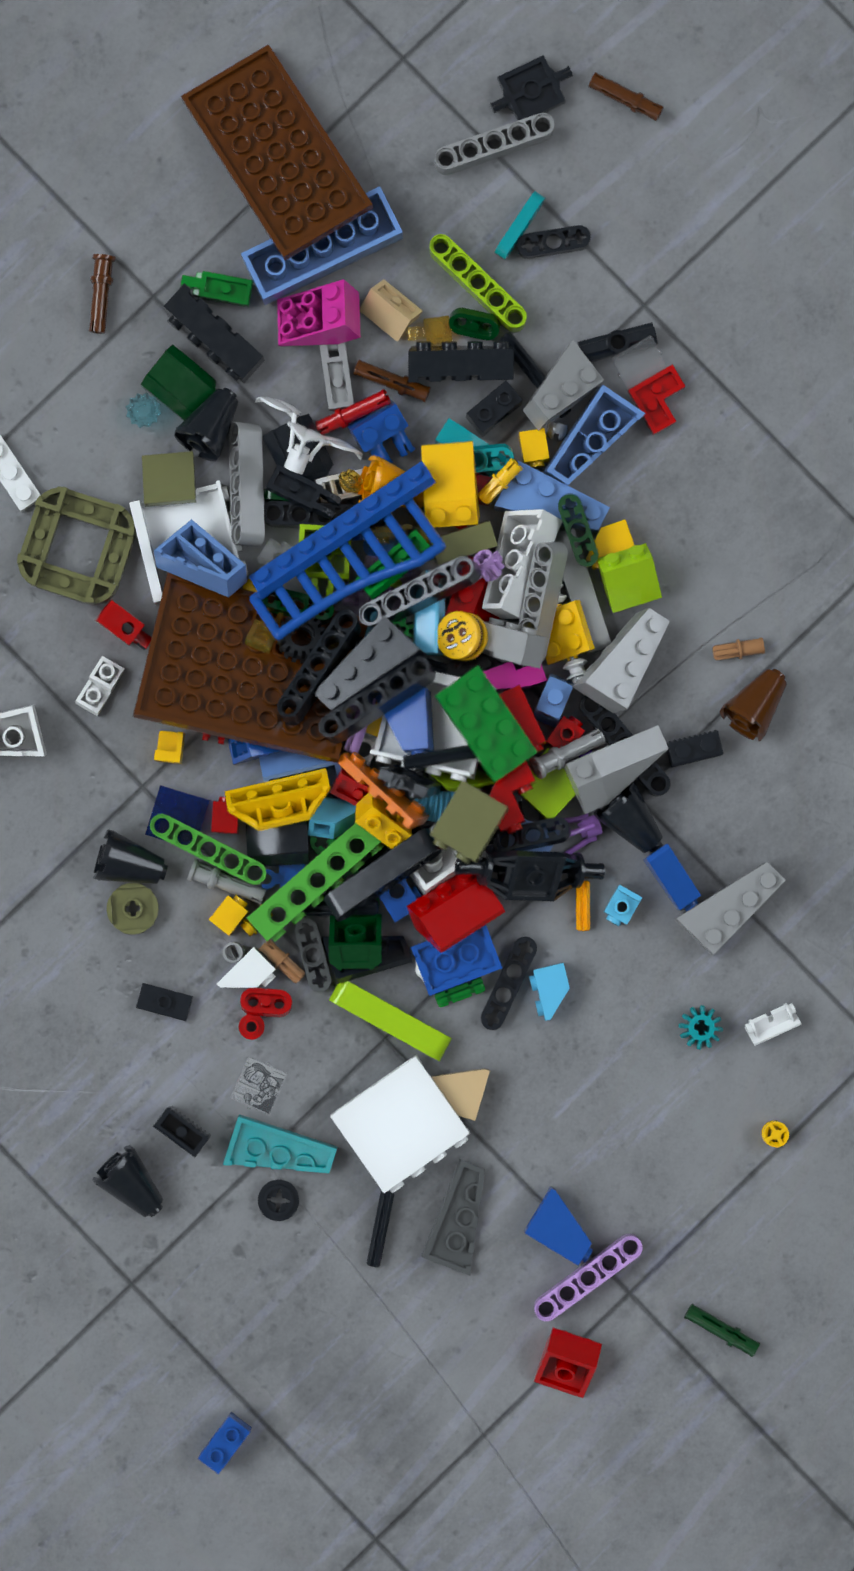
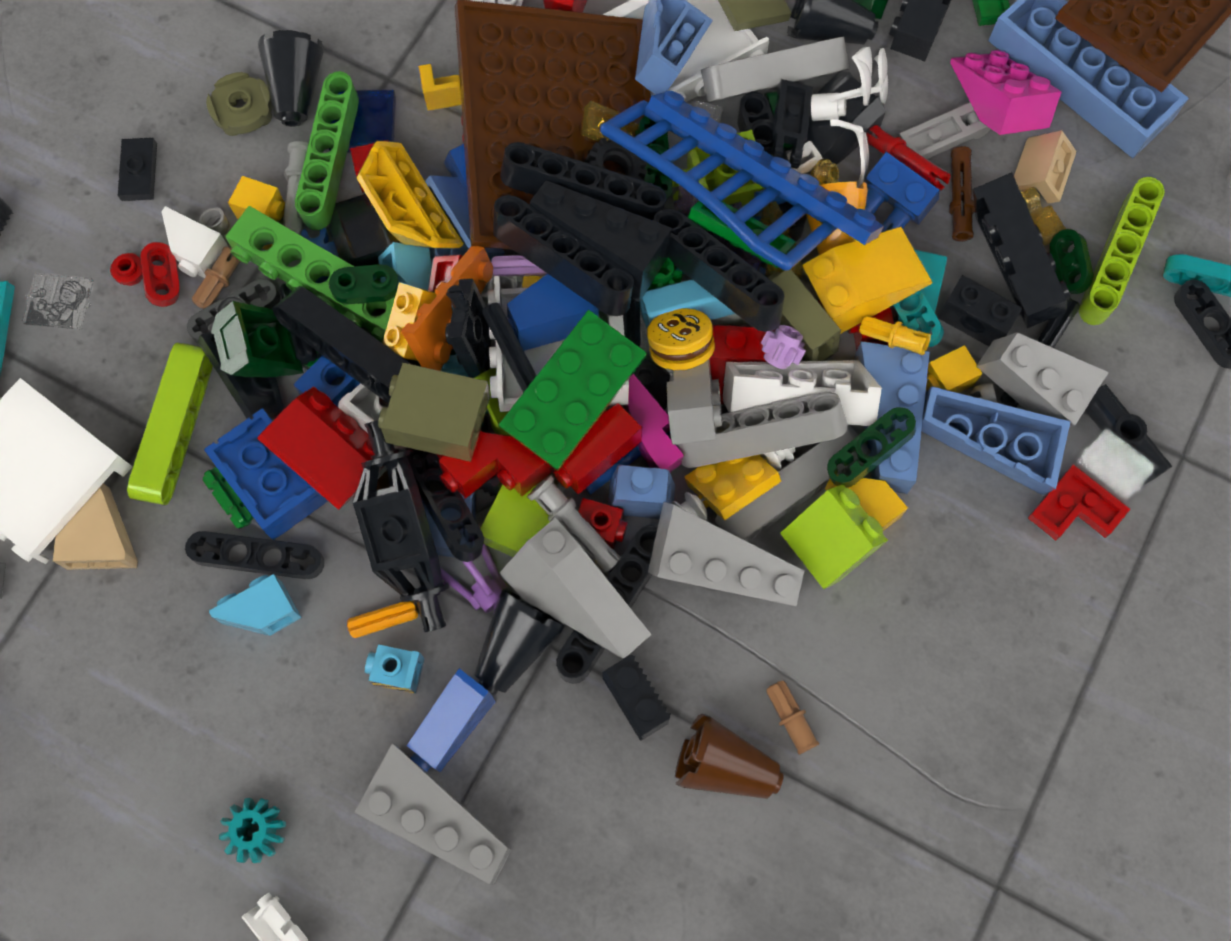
camera: 75 degrees right, 15 degrees down
(340, 849) = (363, 285): none -> dark green plate

